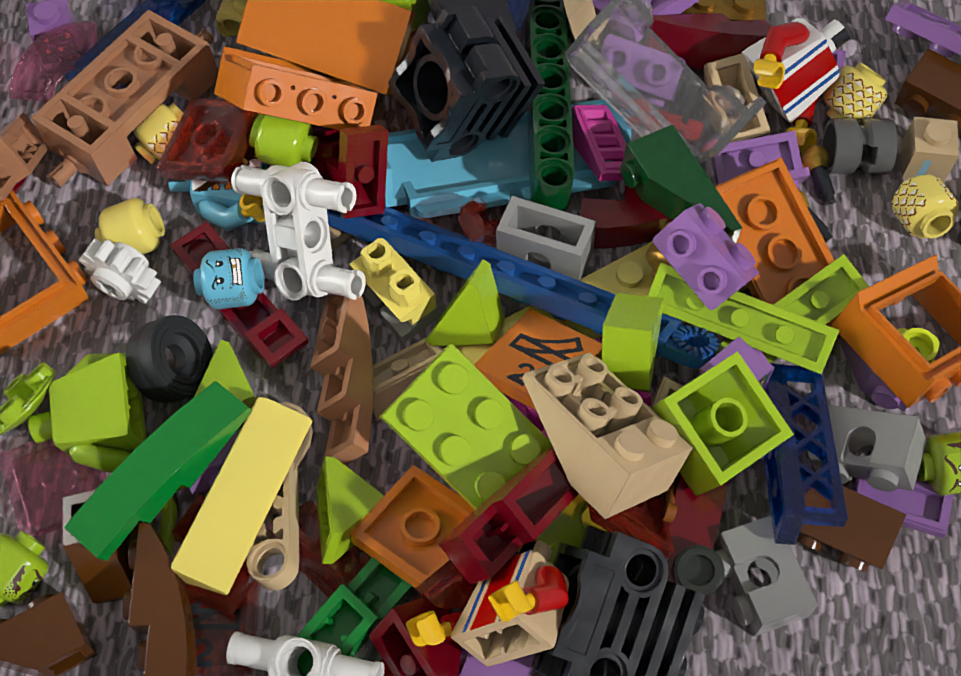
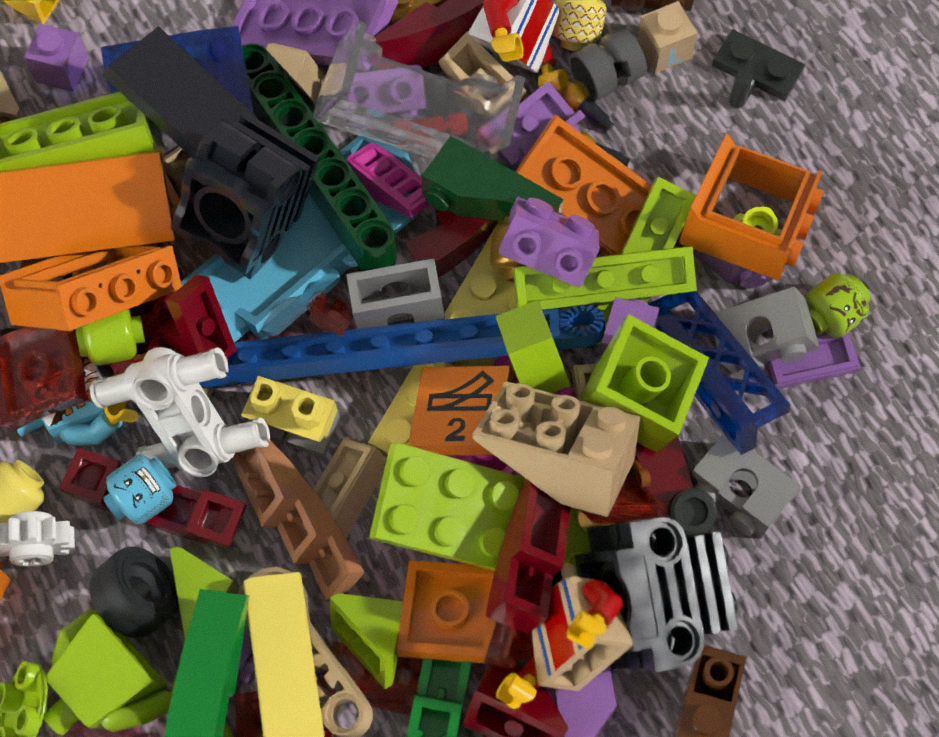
camera: 30 degrees left, 5 degrees up
(472, 314) = (372, 400): lime slope -> none
(864, 538) = (808, 405): reddish brown brick -> none
(925, 206) = (691, 91): light yellow head -> none

